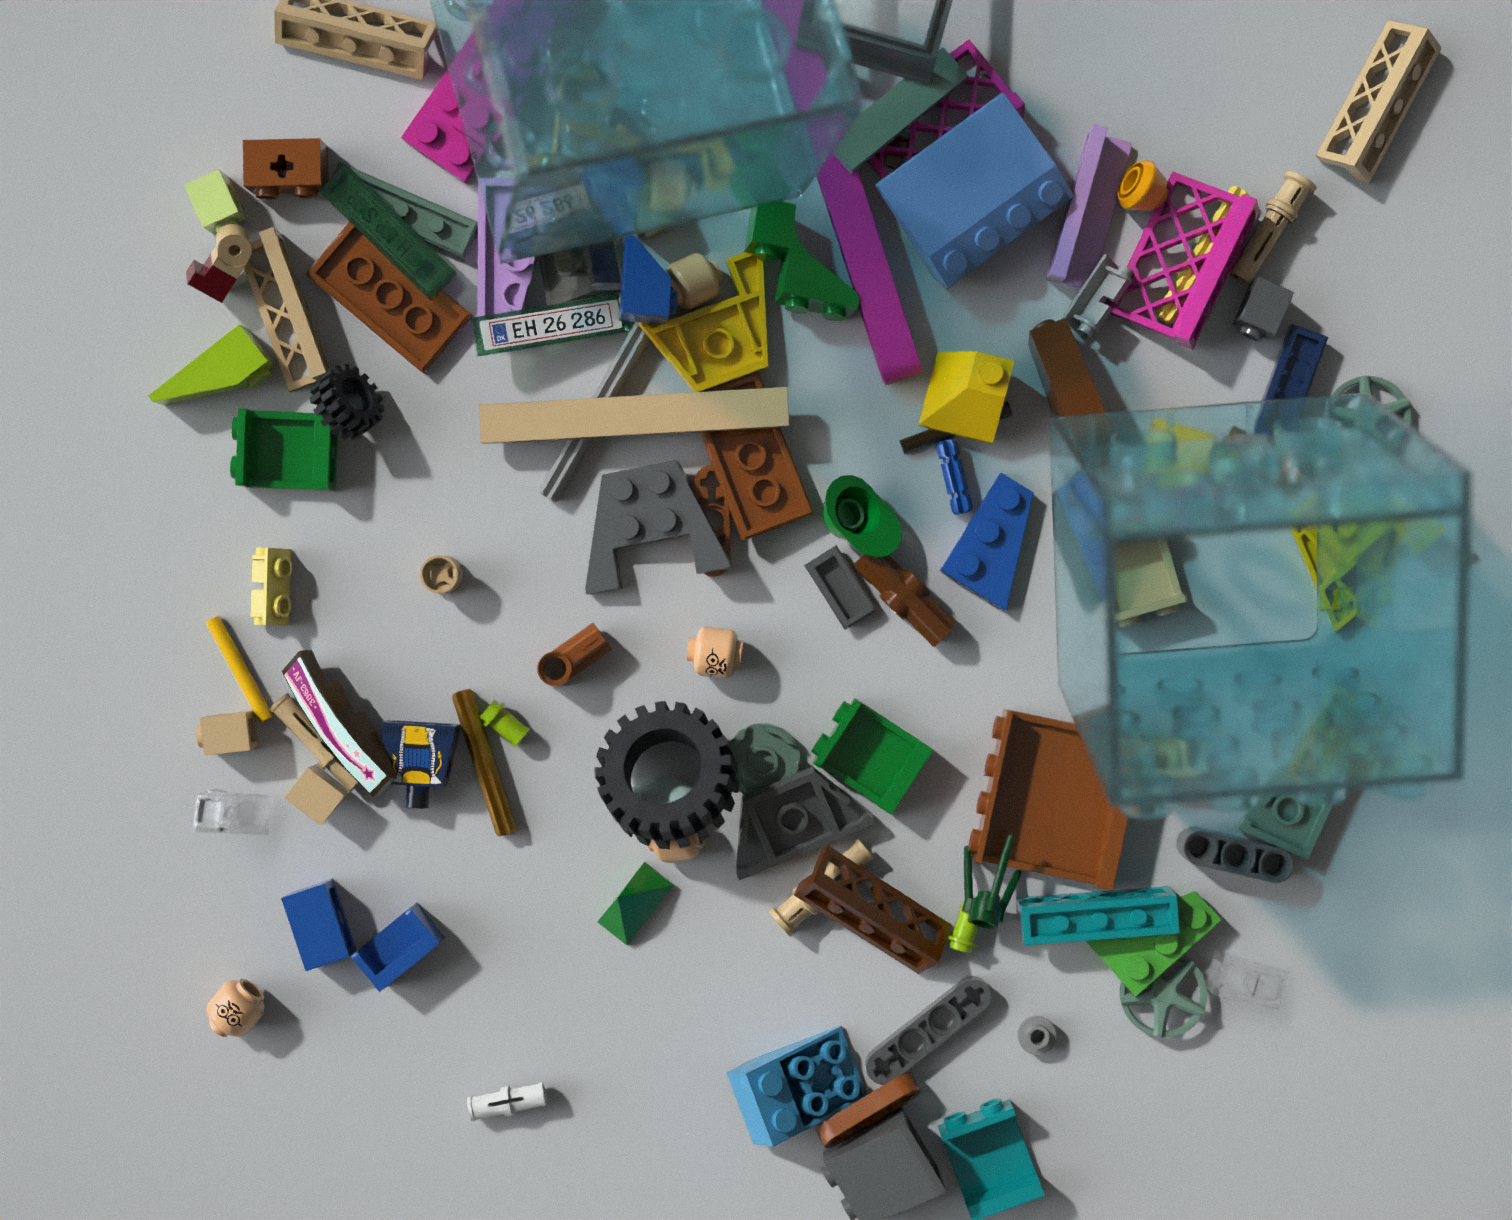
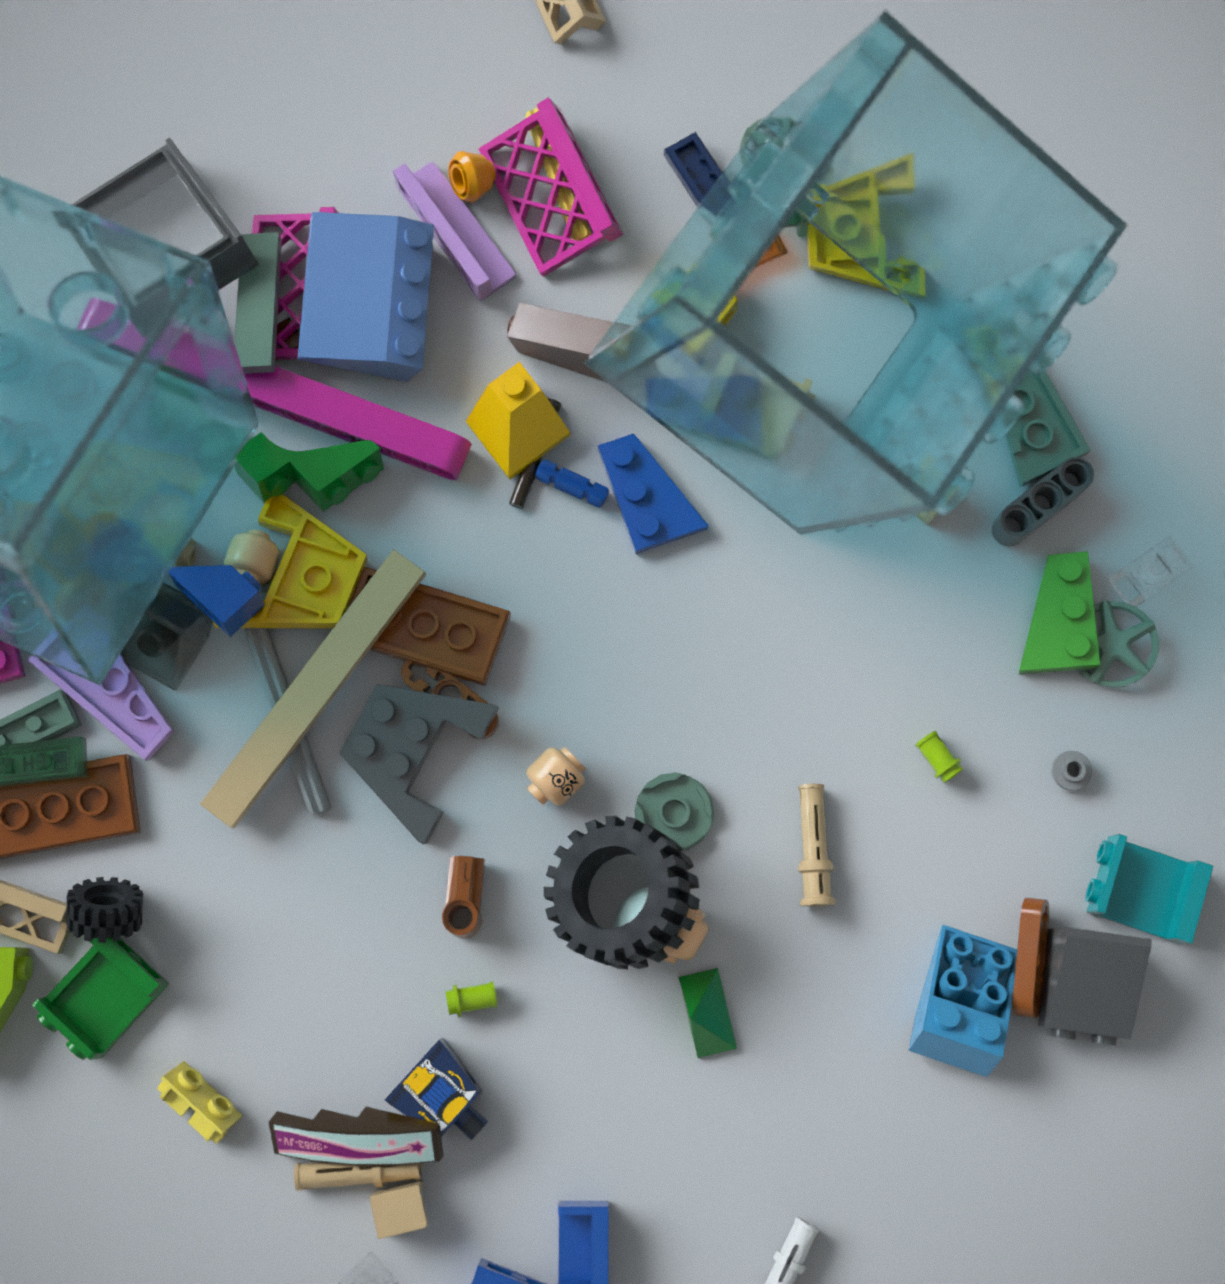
camera: 50 degrees left, 10 degrees down
(227, 733) = (285, 1244): tan brick -> none
(239, 669) = (243, 1189): yellow bar -> none
(435, 572) = (300, 950): tan wheel -> none
(484, 762) = (489, 1043): pearl gold axle -> none
(548, 325) = (187, 698): tile -> none
(794, 819) = (741, 824): dark grey wing -> none
(840, 587) = (585, 638): dark grey tile -> none
(861, 517) = (541, 576): green piece -> none
(871, 754) = (738, 720): green panel -> none
(873, 924) = (874, 823): reddish brown fence -> none
(906, 597) = (632, 592): reddish brown piece -> none
(923, 1025) = (1008, 855): dark grey beam -> none
(987, 908) = (935, 722): dark green plant -> none
(1050, 802) = (890, 606): dark orange panel -> none
(1089, 307) = (527, 282): light grey hinge -> none
(1098, 915) = (1010, 642): teal fence -> none
(1262, 309) = (635, 161): dark grey brick -> none
(1280, 212) = (574, 96): tan pin -> none

